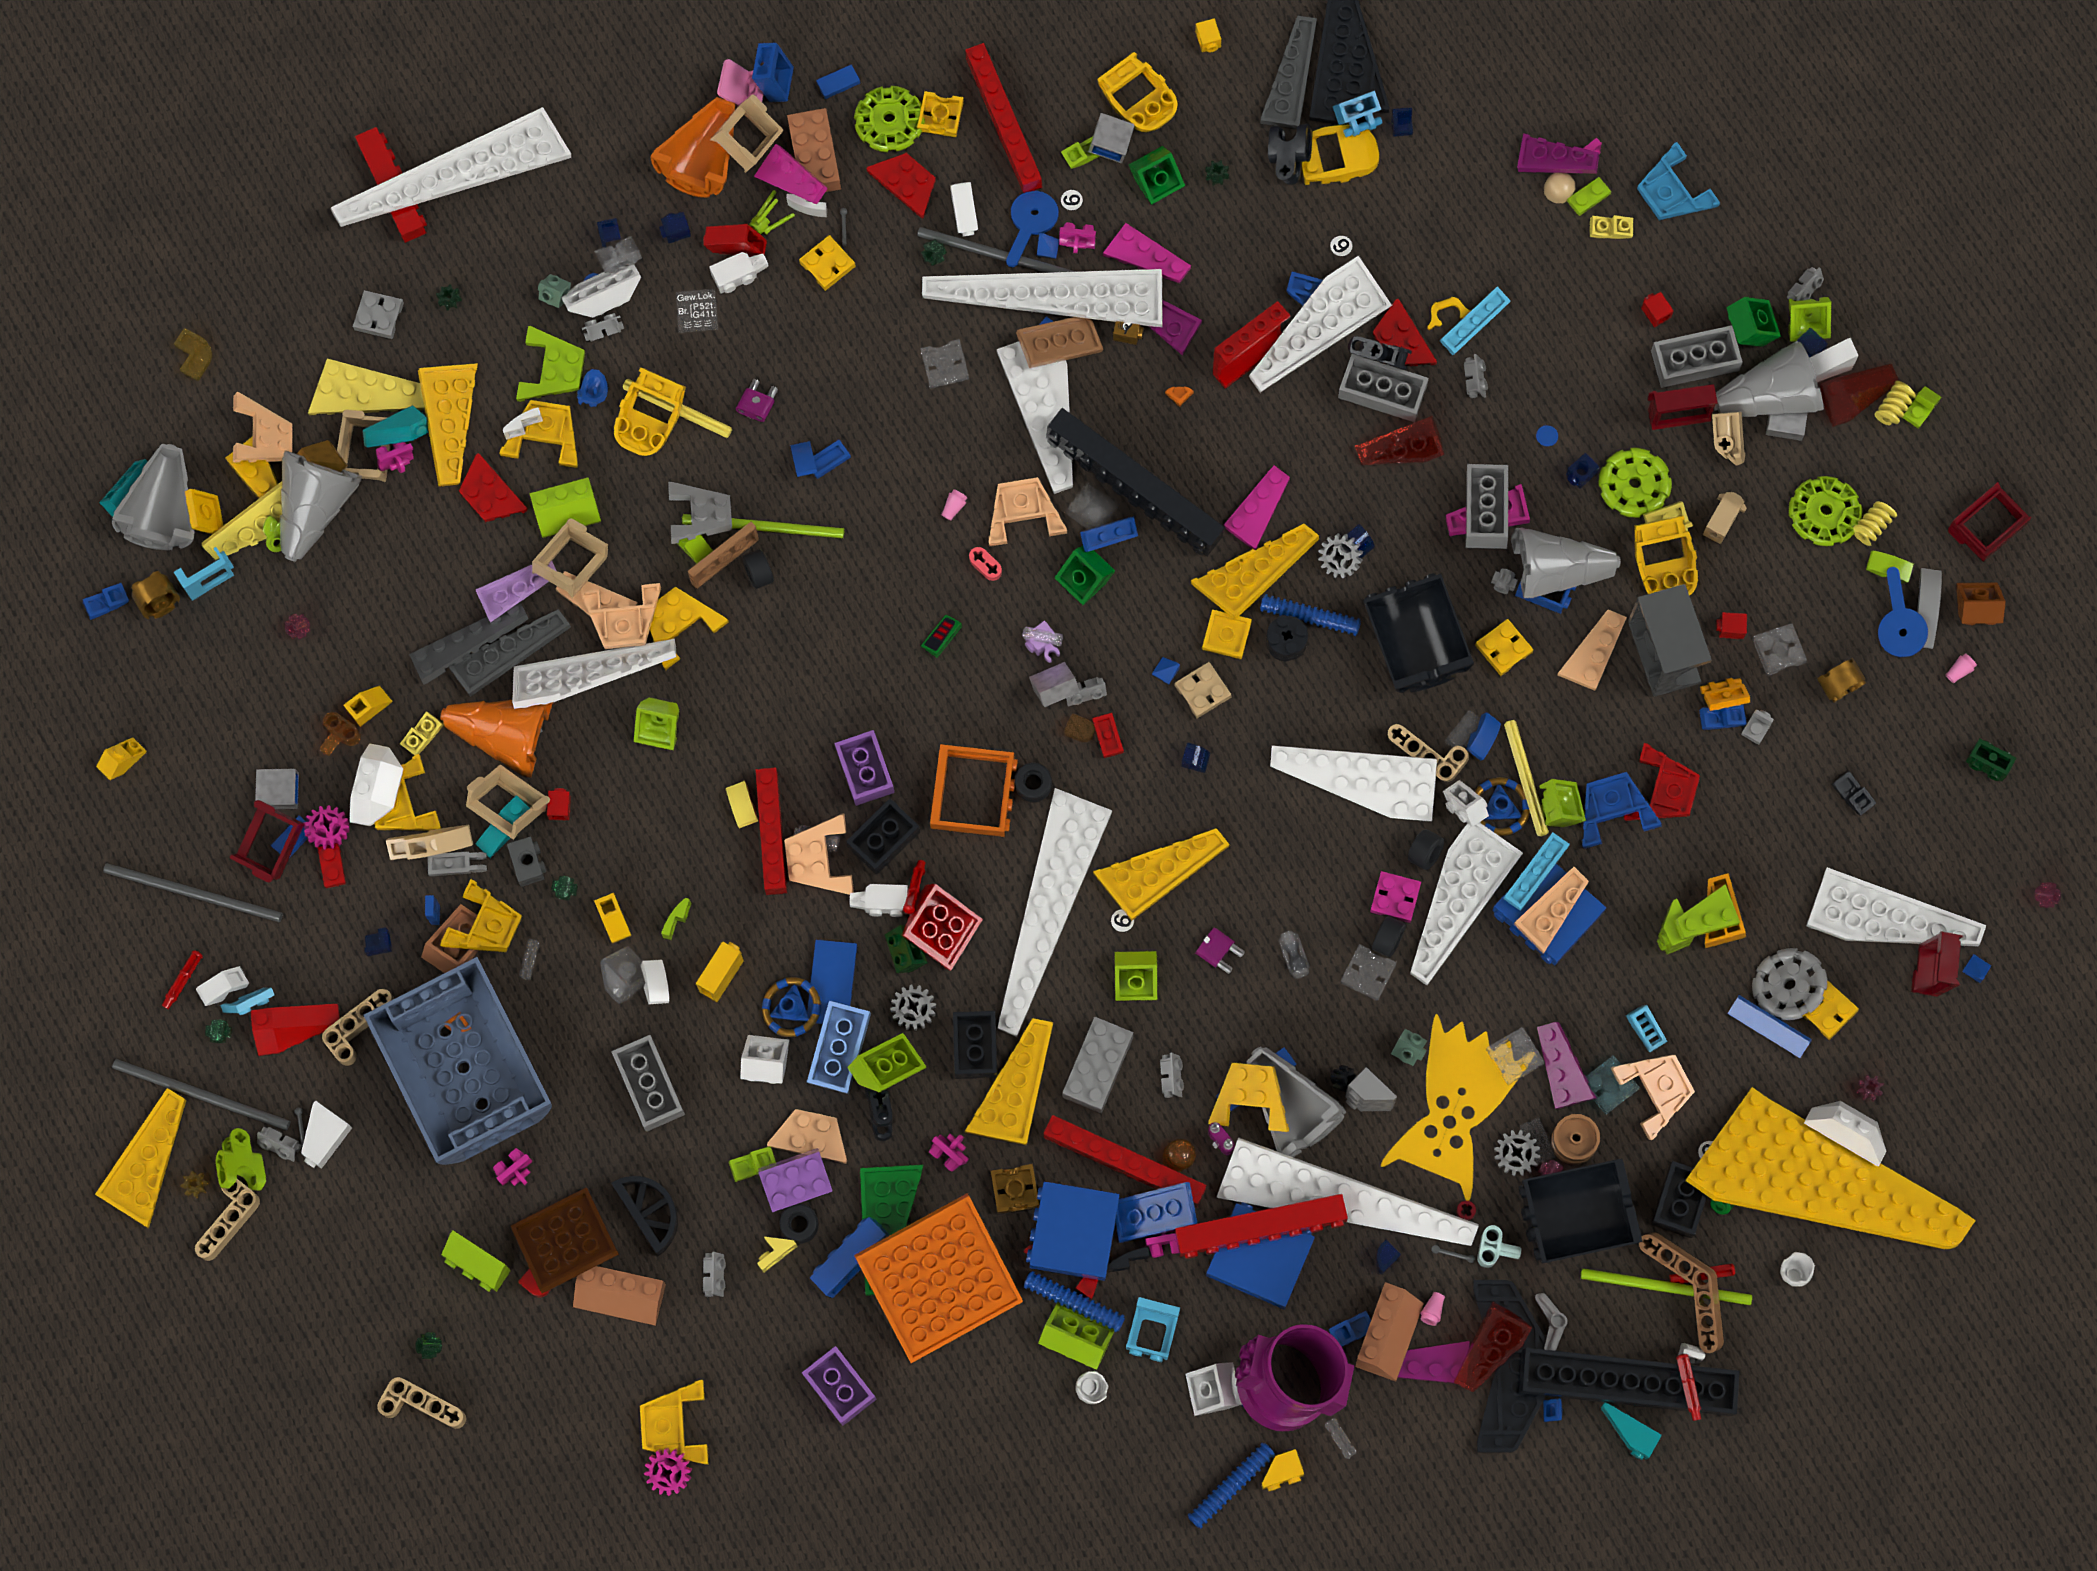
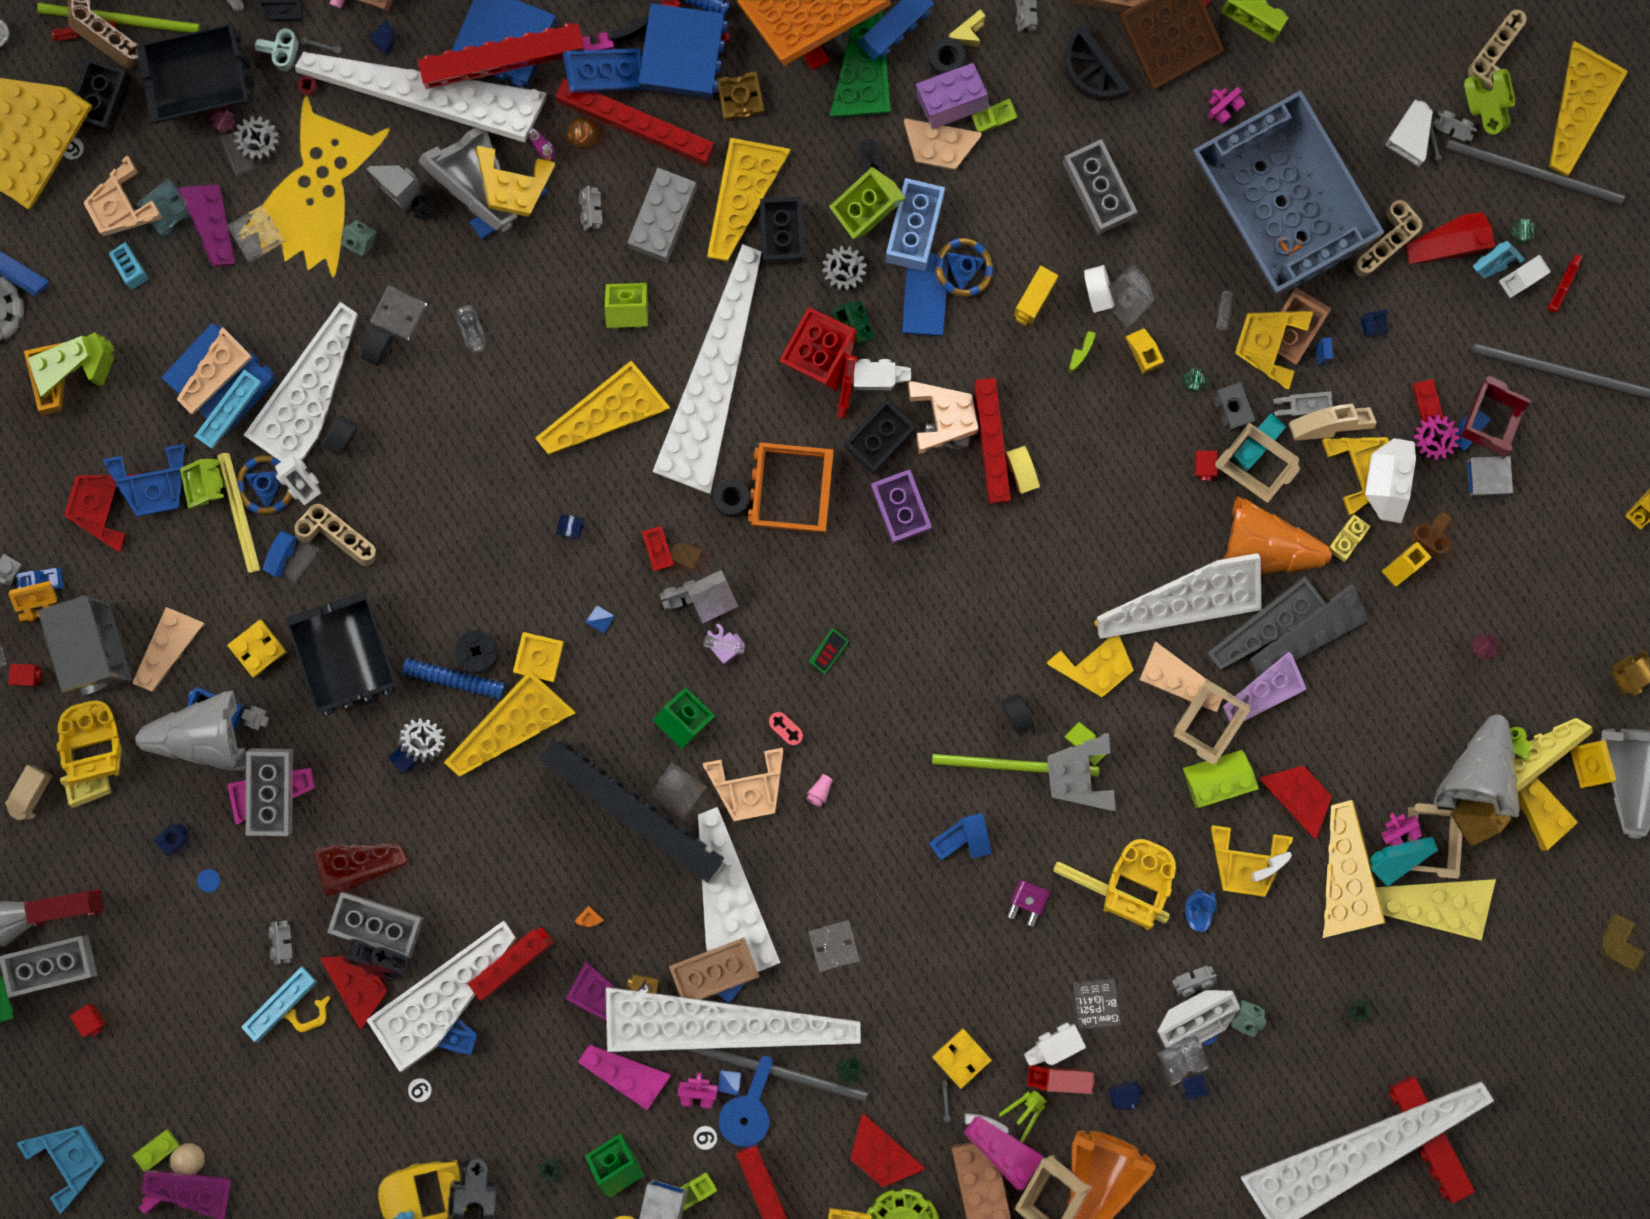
camera: 175 degrees right, 10 degrees up
(193, 584) = (1601, 683): medium azure window -> none
(198, 1179) = (1526, 85): clear yellow gear -> none
(270, 433) = (1532, 848): light nougat wing -> none
(382, 316) = (1426, 989): light grey brick -> none
(560, 369) = (1235, 936): lime wing -> none
(623, 625) = (1153, 650): light nougat wing -> none
(656, 723) = (1112, 548): lime brick -> none
(723, 555) = (1054, 726): medium nougat tile -> none
(764, 1059) = (987, 216): white slope -> none
(942, 1145) = (802, 131): dark pink hips -> none
(964, 208) = (819, 1123): white slope -> none
(1109, 534) = (659, 757): blue tile -> none
(1121, 921) = (642, 362): white sticker -> none
(1199, 693) = (567, 595): tan brick -> none
(1216, 947) = (548, 335): magenta piece -> none
(1255, 512) = (509, 790): dark pink wing -> none
(1384, 783) = (384, 503): white wing -> none
(1394, 901) = (370, 393): dark pink brick -> none
(1583, 1129) = (188, 153): medium nougat wheel -> none
(1615, 227) = (133, 1115): light yellow slope -> none
(1638, 471) = (106, 832): lime plate -> none
(1729, 427) = (17, 885): tan piece -> none

